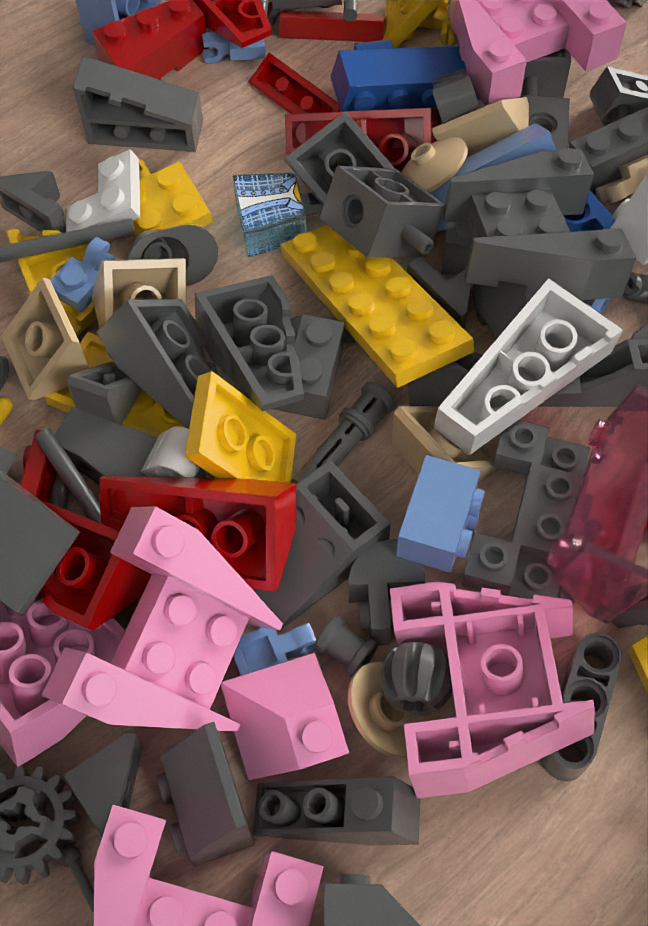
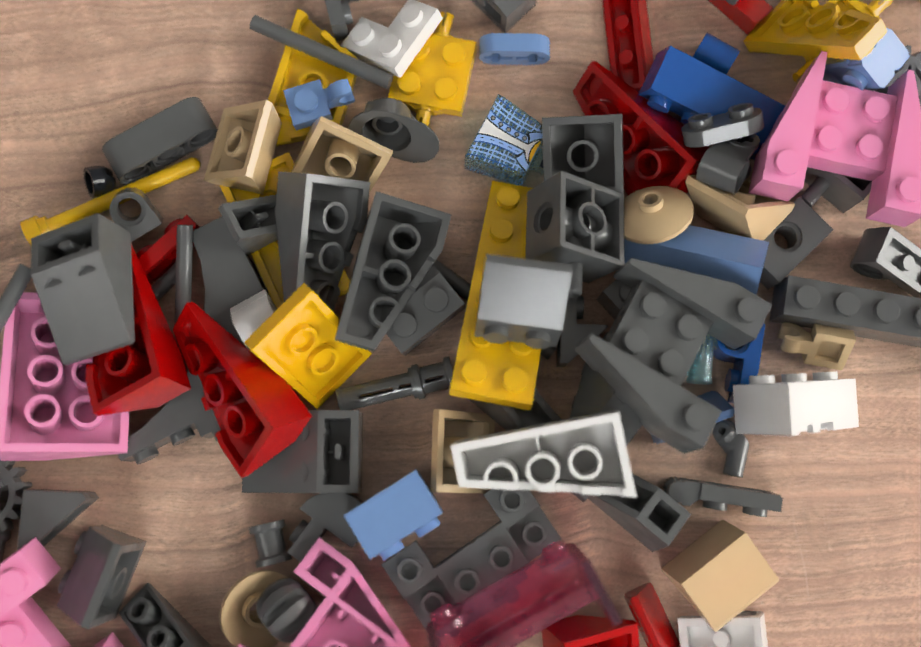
camera: 35 degrees right, 20 degrees up
(176, 638) = (140, 468): bright pink wedge -> none
(214, 149) = (514, 49): none -> medium blue beam
(265, 648) = (216, 503): medium blue plate -> none
(284, 718) = (190, 563): bright pink slope -> none
(393, 262) = (522, 301): none -> slope
(415, 84) = (736, 123): none -> dark grey plate

